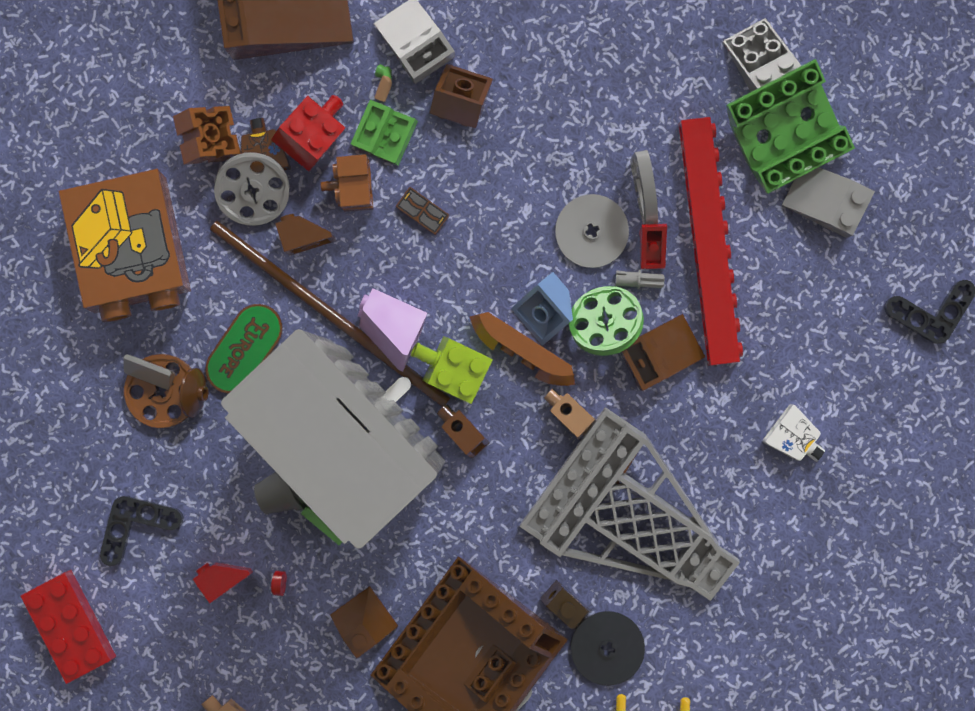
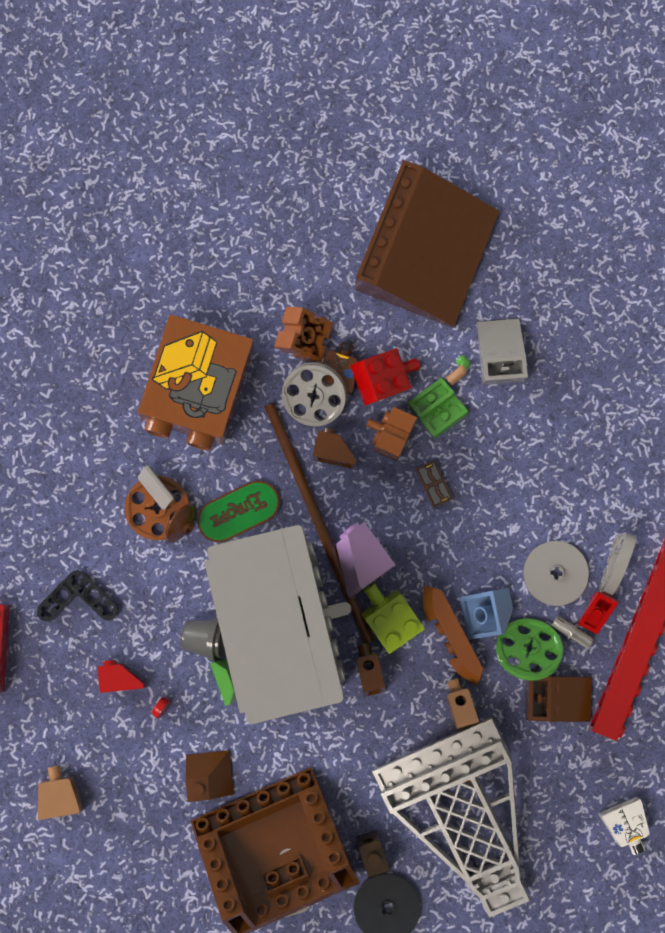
camera: 30 degrees right, 5 degrees down
(460, 96) = (512, 413): reddish brown slope -> none

